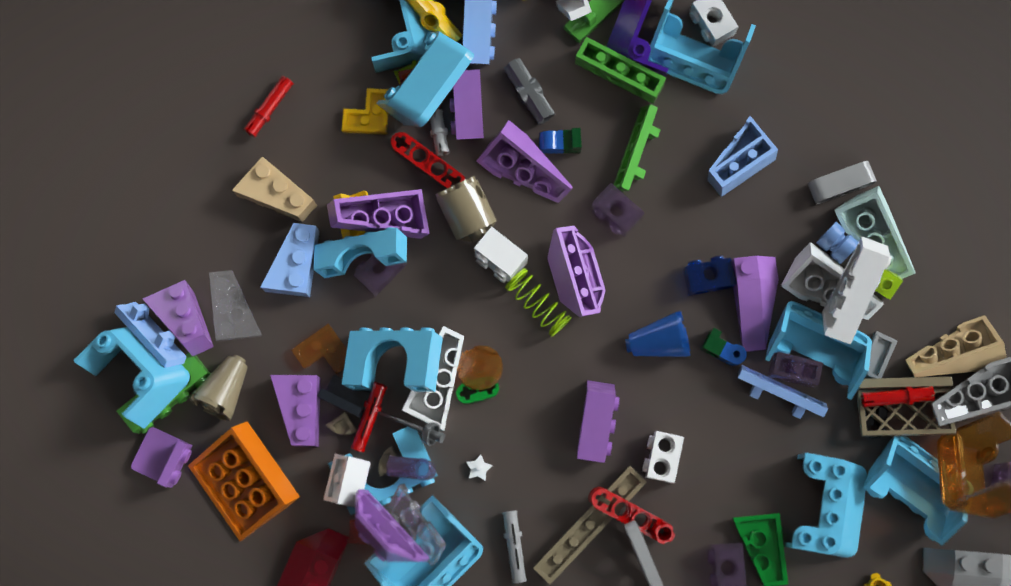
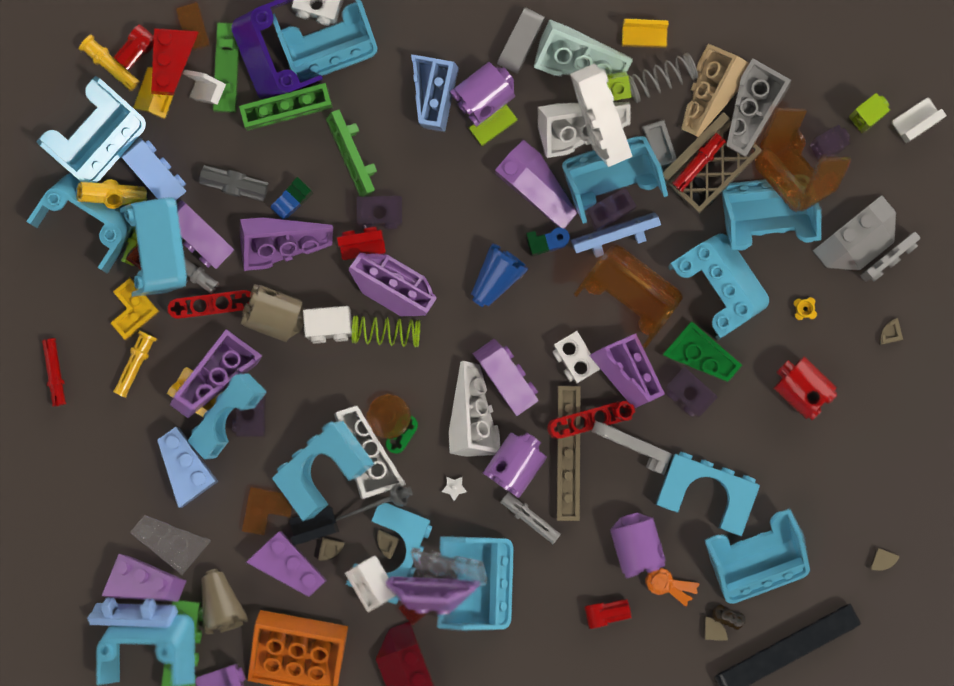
camera: 40 degrees left, 5 degrees up
(273, 190) = (119, 429): tan wedge -> none
(341, 150) = (138, 354): none -> yellow pin
(378, 391) = (333, 501): red pin -> none
(408, 468) = (406, 533): clear purple piece -> none
(538, 430) = (471, 420): none -> white wedge
(542, 494) = (516, 463): none -> medium lavender cylinder
(587, 223) = (368, 242): none -> red bracket
(696, 505) = (629, 370): none -> medium lavender wedge
(698, 284) = (482, 209): clear blue brick -> none
(758, 446) = (635, 287): none -> clear orange windscreen
(763, 225) = (493, 125): none -> lime tile
(779, 194) = (484, 92): none -> medium lavender cylinder
(839, 244) = (557, 89): medium blue wheel -> none
(896, 297) = (689, 63): none -> light grey piece
(943, 262) = (644, 33): none -> yellow panel

